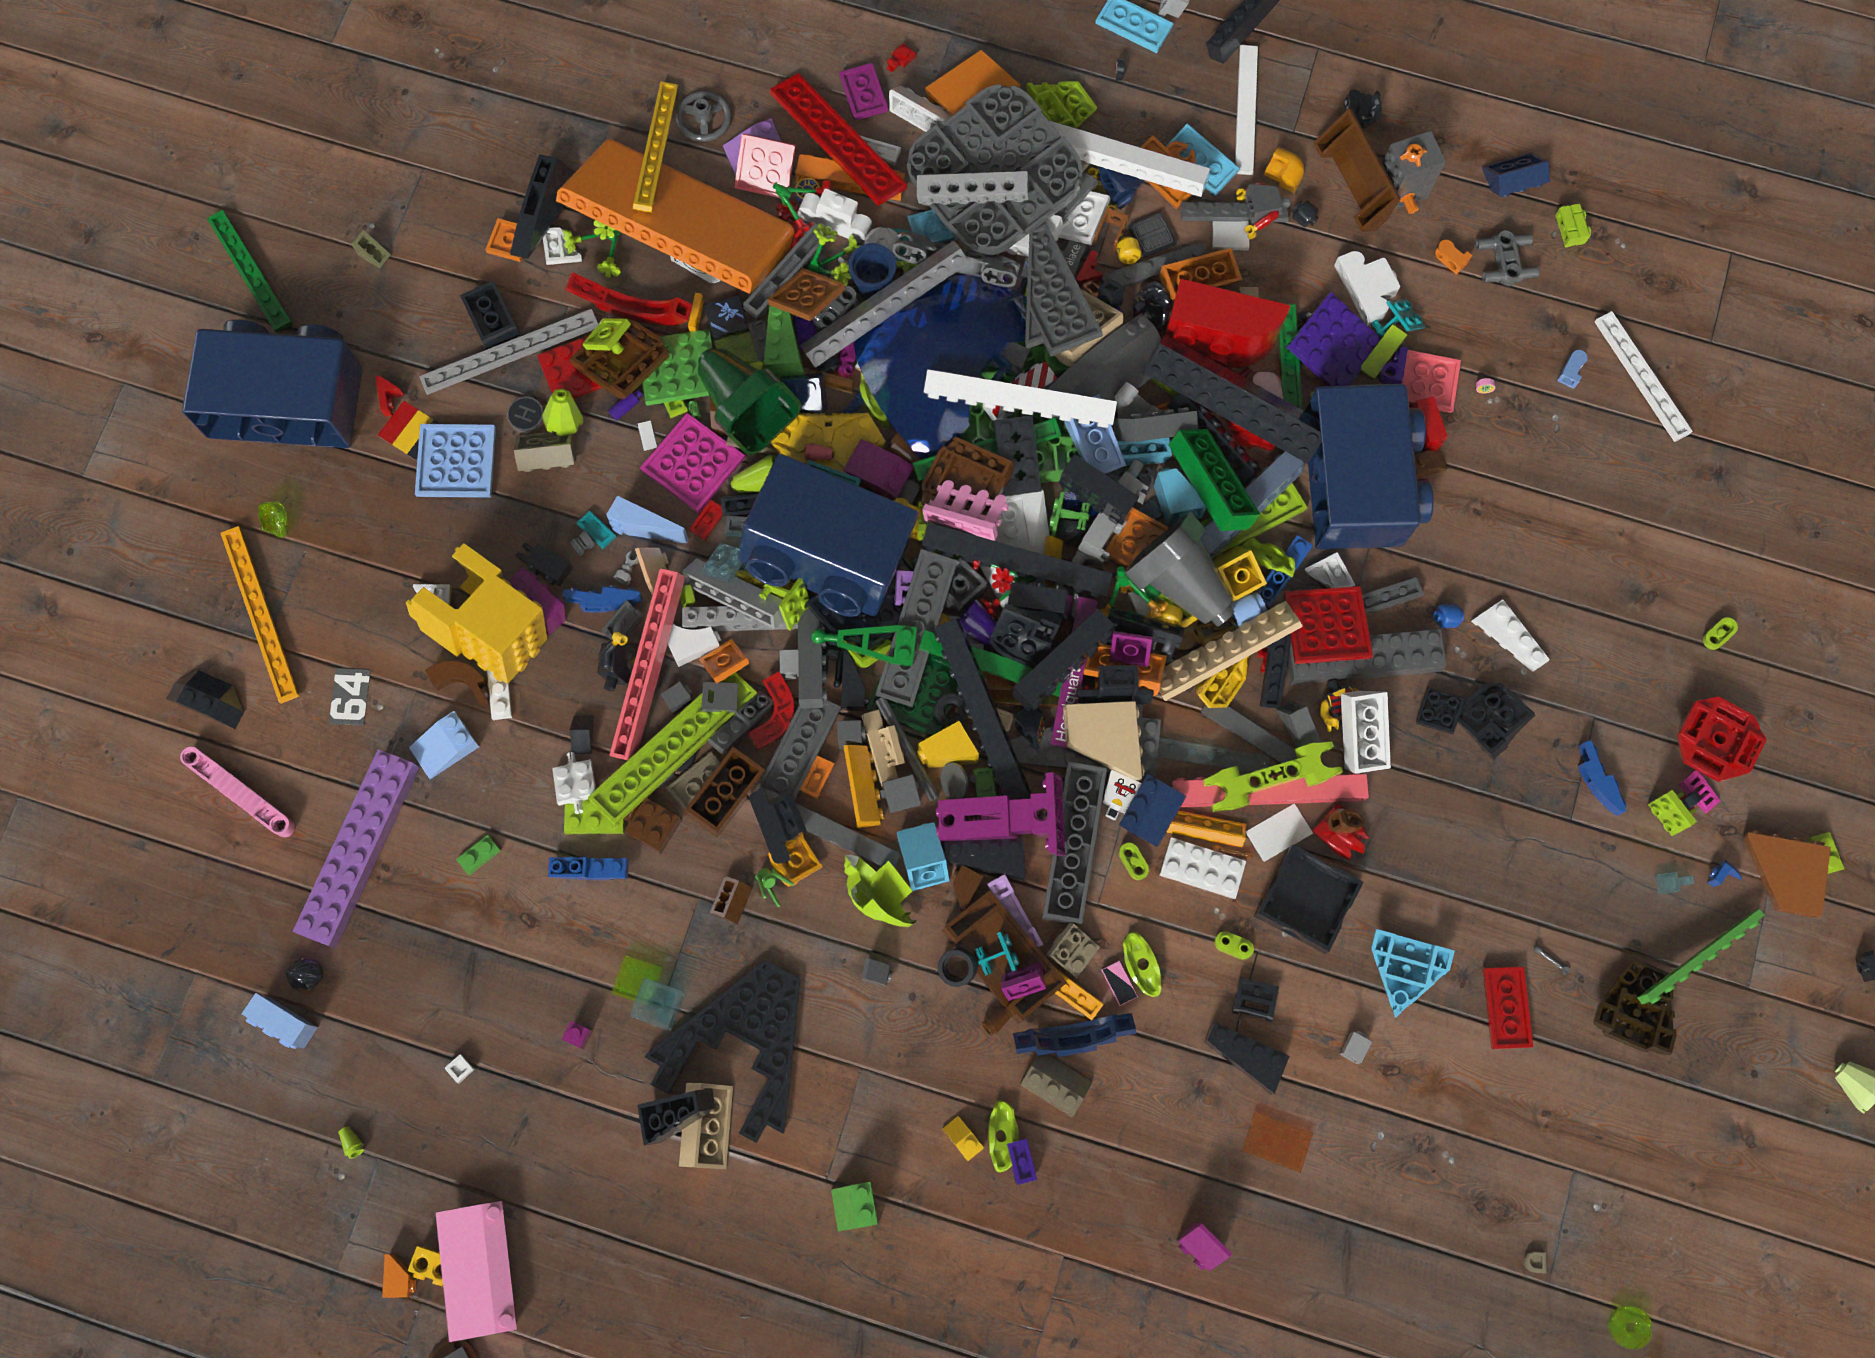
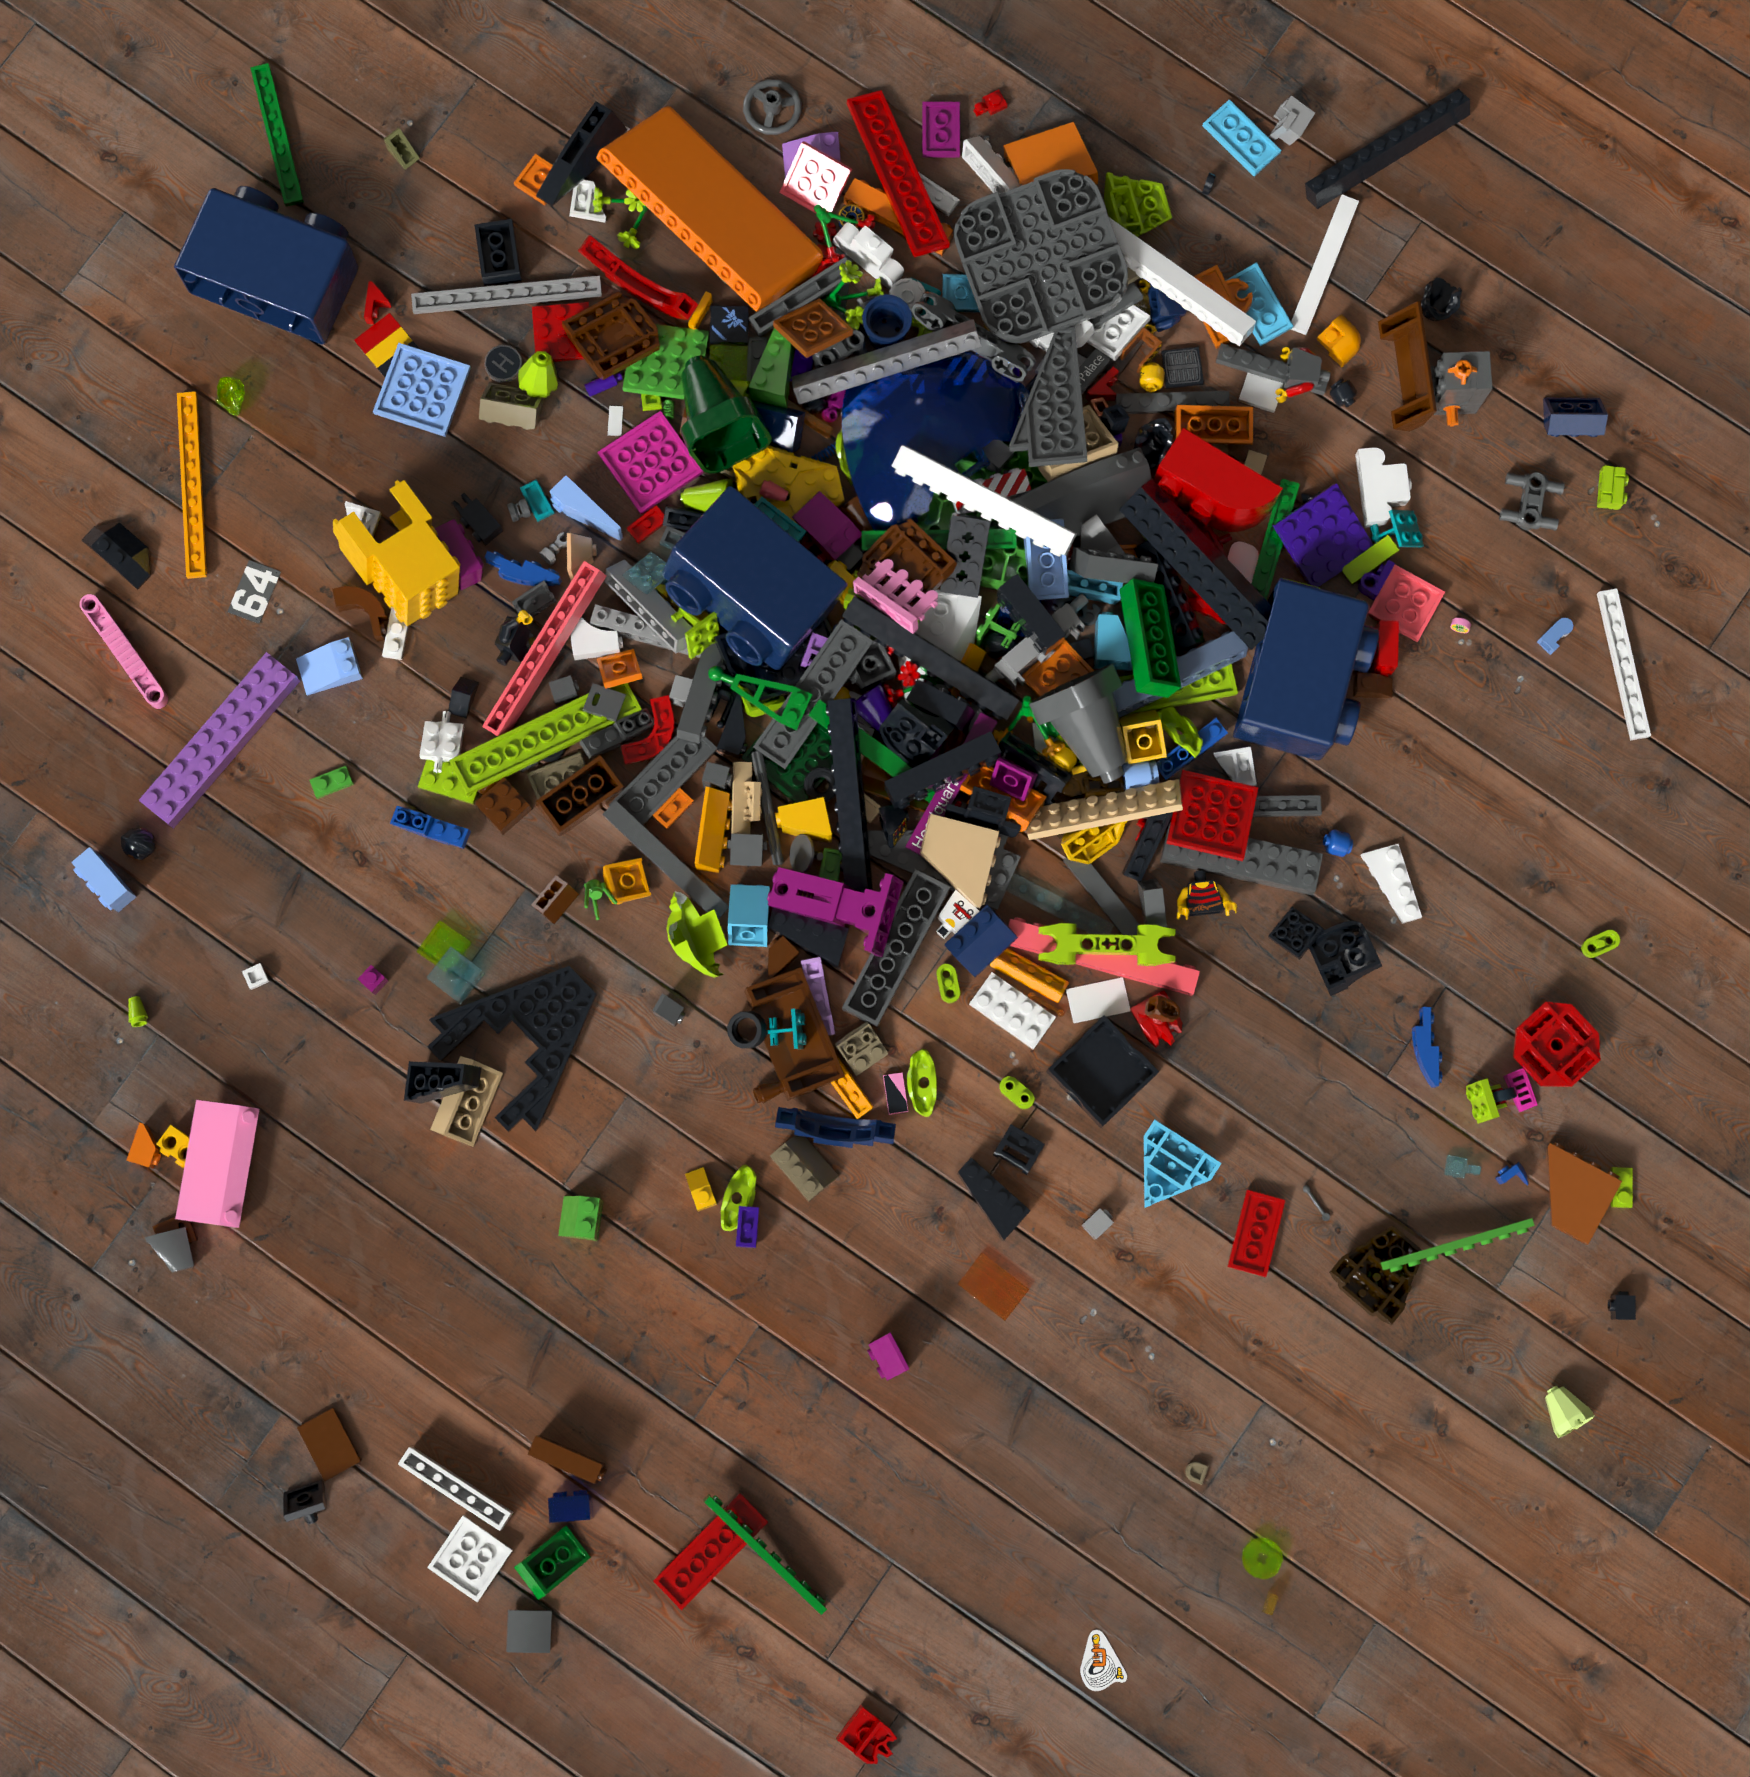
camera: 15 degrees right, 5 degrees up
(606, 335) = (605, 310): lime tile -> none
(655, 147) = (712, 129): yellow plate -> none
(687, 596) = (603, 594): lime tile -> none
(778, 823) = (620, 841): black plate -> none
(964, 182) = (966, 252): light grey brick -> none
(1023, 981) = (803, 1062): magenta tile -> none
(1365, 731) = (1212, 929): white slope -> none
(1451, 256) = (1476, 483): orange leg -> none

